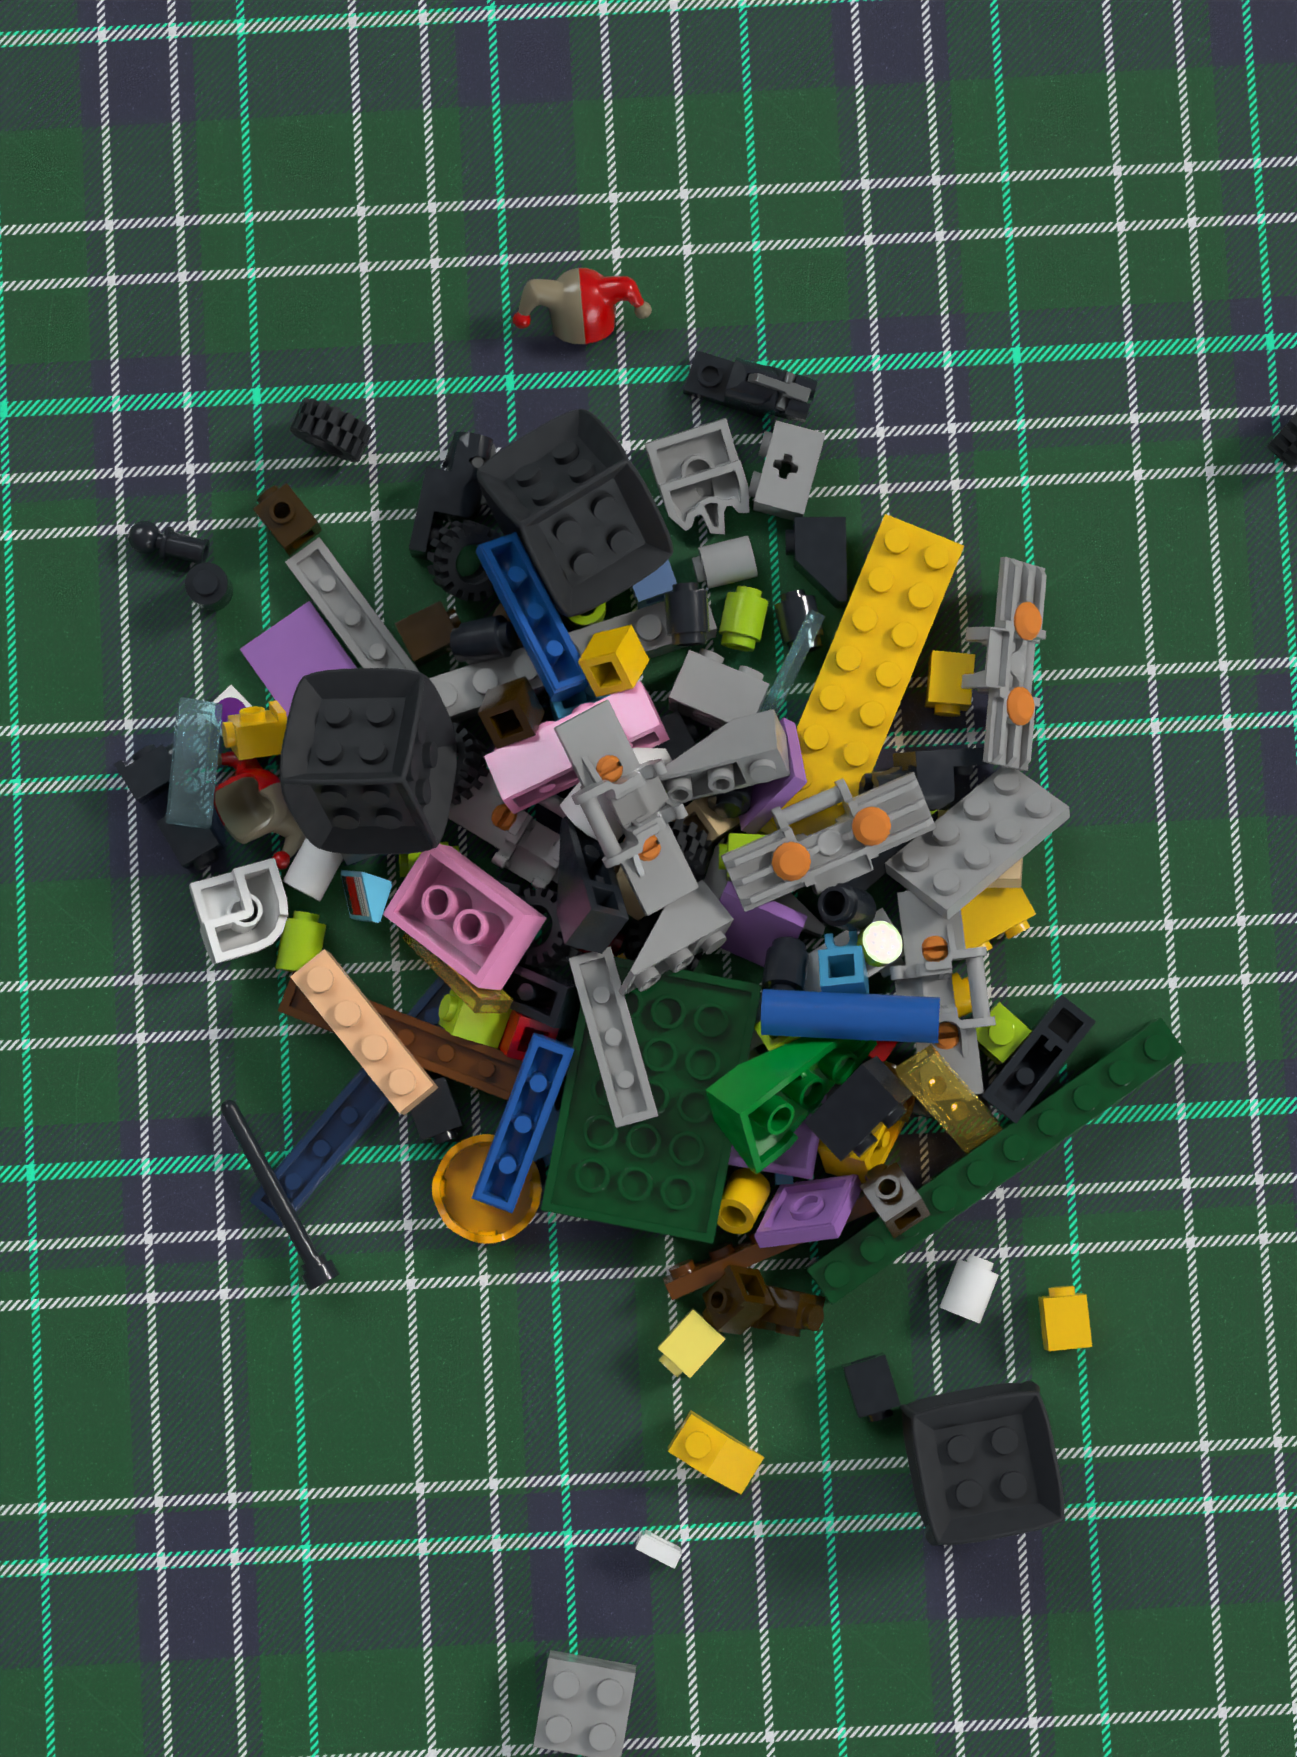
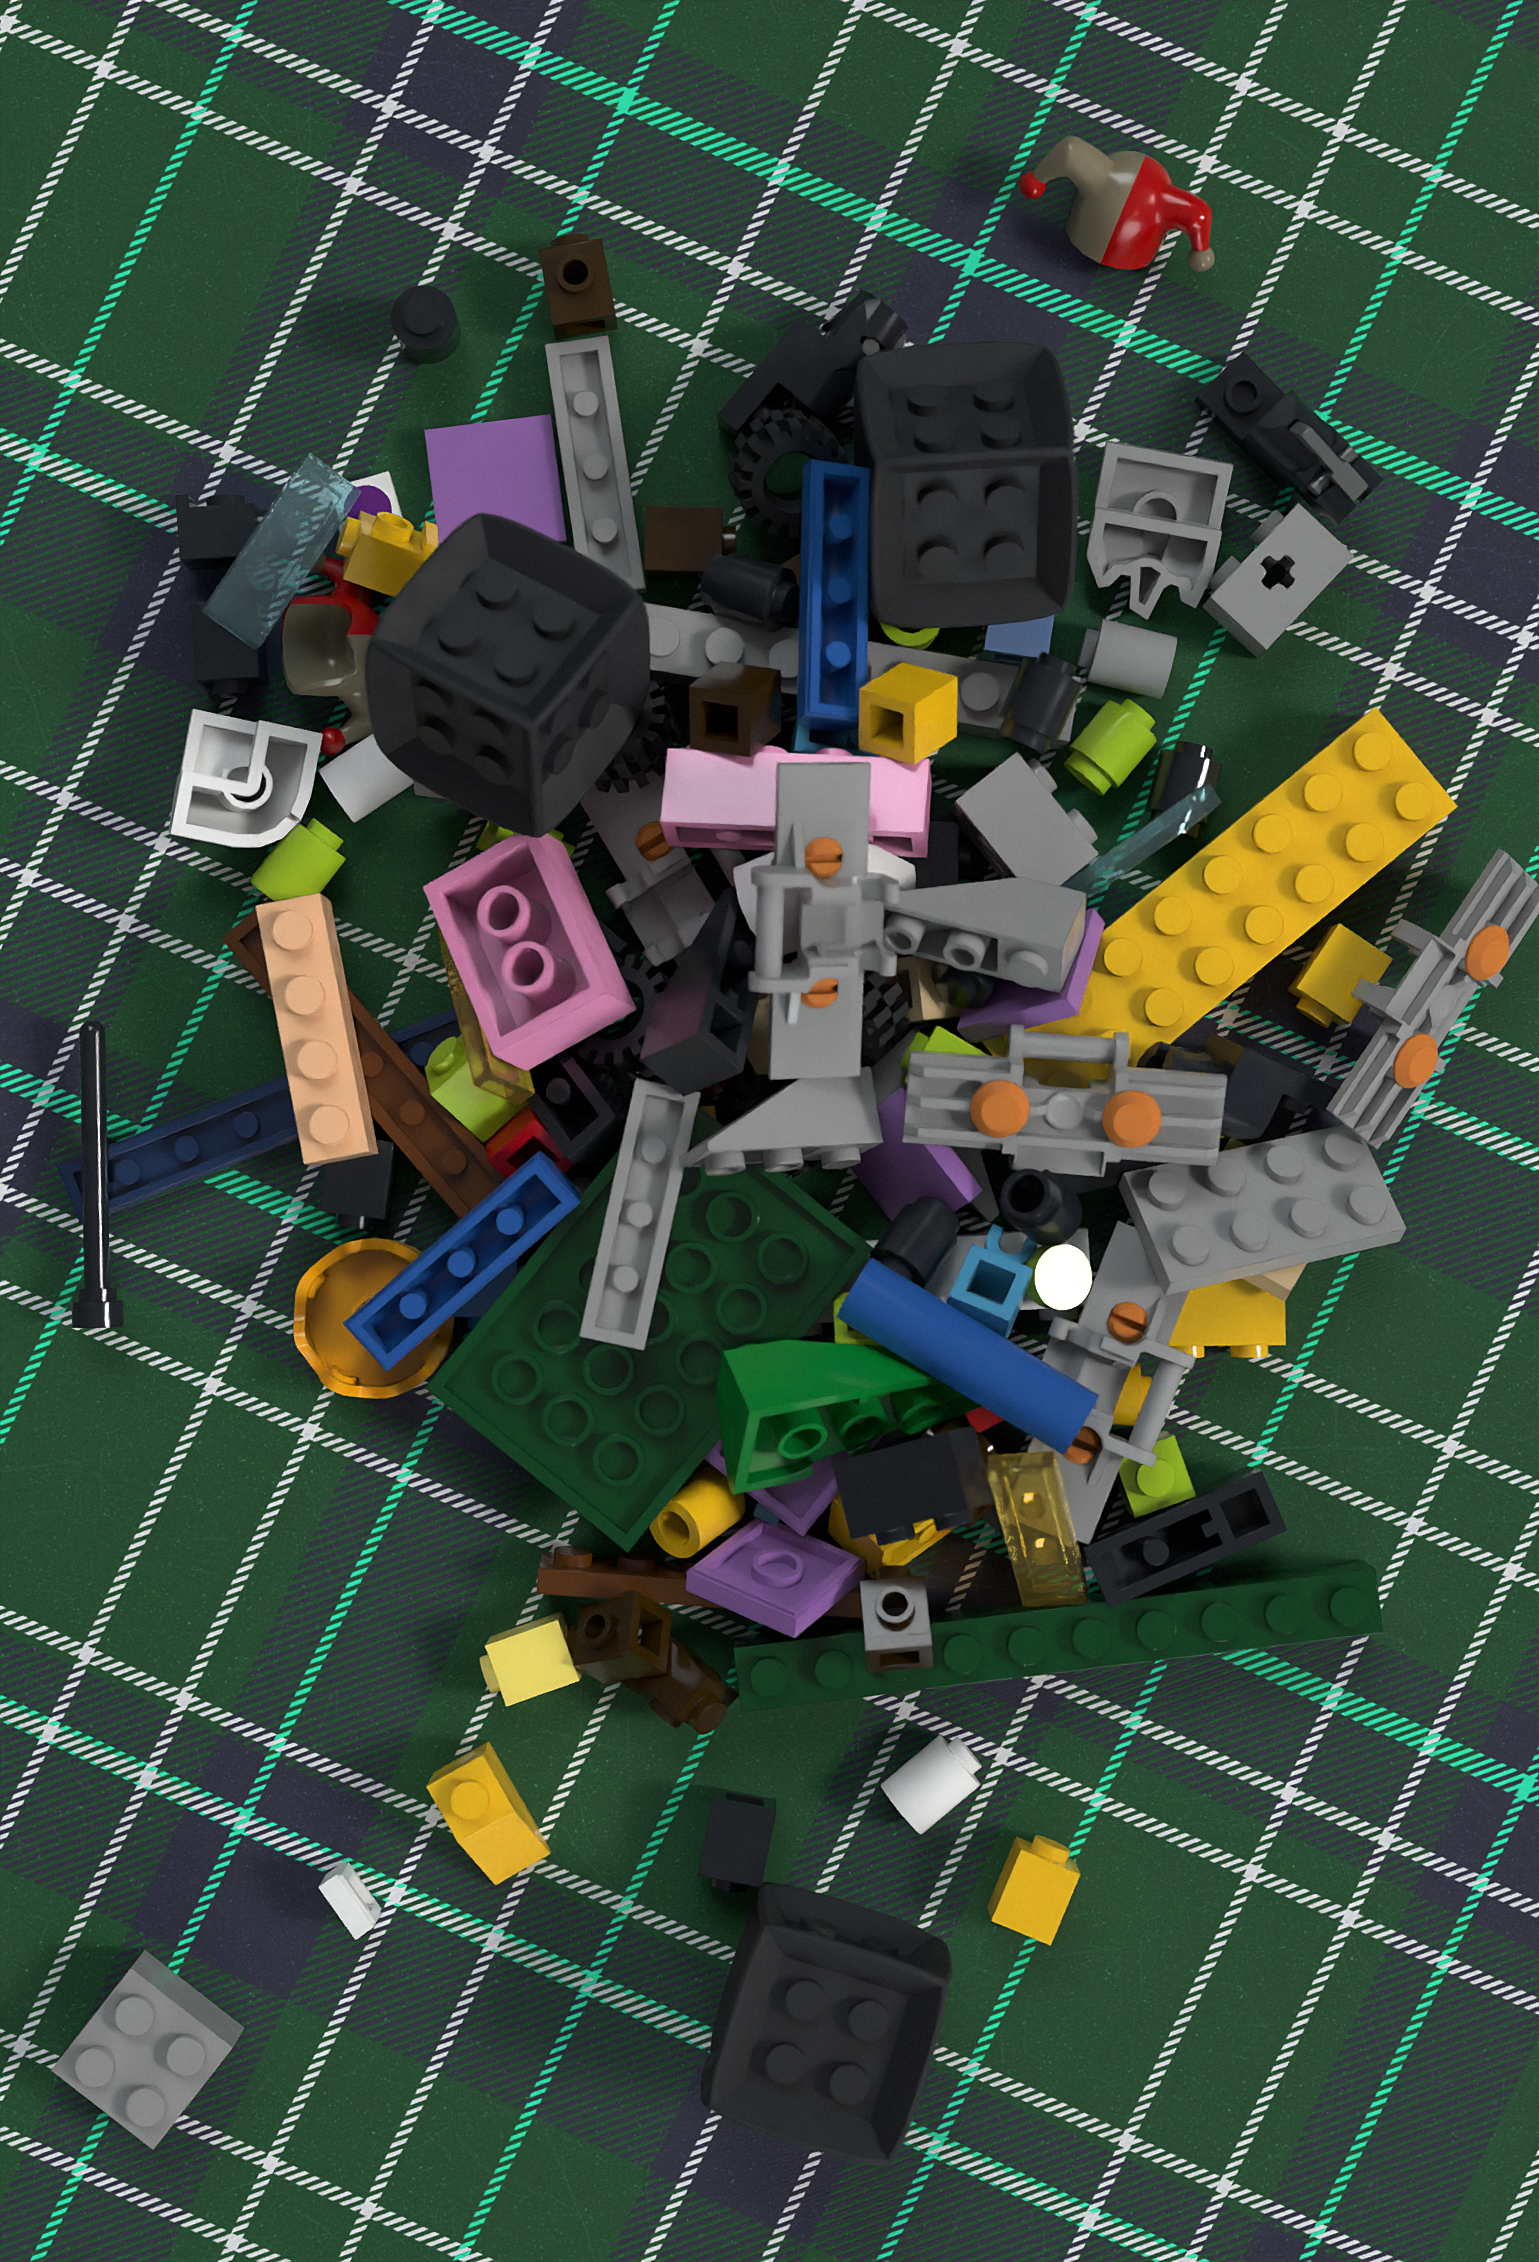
camera: 25 degrees right, 5 degrees up
(146, 538) = (378, 214): black pin -> none
(331, 429) = (698, 198): black tyre -> none
(365, 895) = (416, 849): medium azure slope -> none
(821, 555) = (1260, 715): black slope -> none

